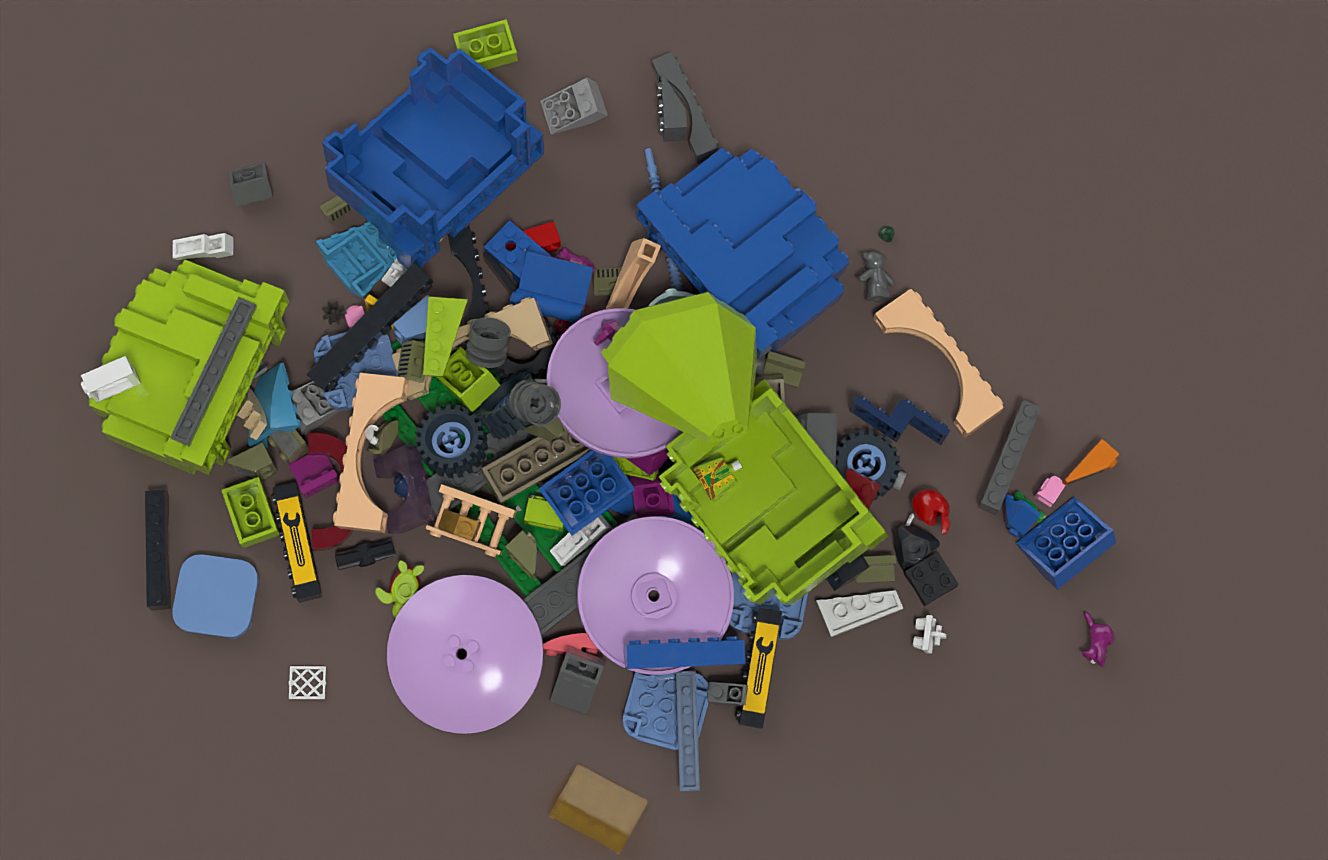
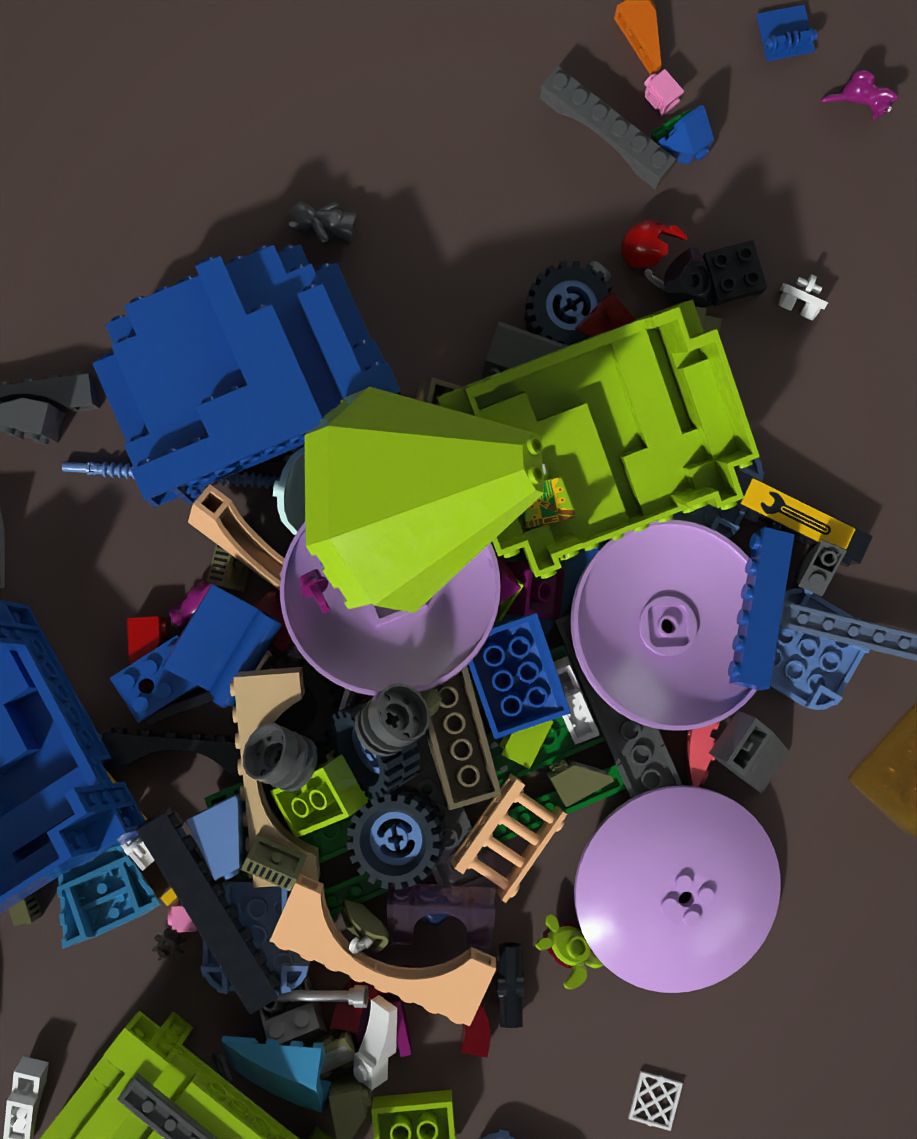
camera: 75 degrees left, 10 degrees up
(253, 415) = (282, 1100): tan slope -> none
(297, 542) = (459, 1072): brick -> none
(303, 469) = (377, 1045): none -> white slope
(334, 444) = (355, 996): none -> light grey piece
(443, 322) = (246, 818): lime wedge -> none
(459, 525) = (516, 857): pearl gold slope -> none
(789, 367) = (412, 369): olive panel -> none
(853, 611) = (751, 369): white wing -> none
(886, 234) = (269, 192): clear green hinge -> none
(902, 416) = (524, 246): dark blue bracket -> none
(911, 316) = (518, 146): light nougat arch -> none
(1067, 542) = (733, 90): blue slope -> none
(1127, 571) = (786, 33): none -> blue hinge

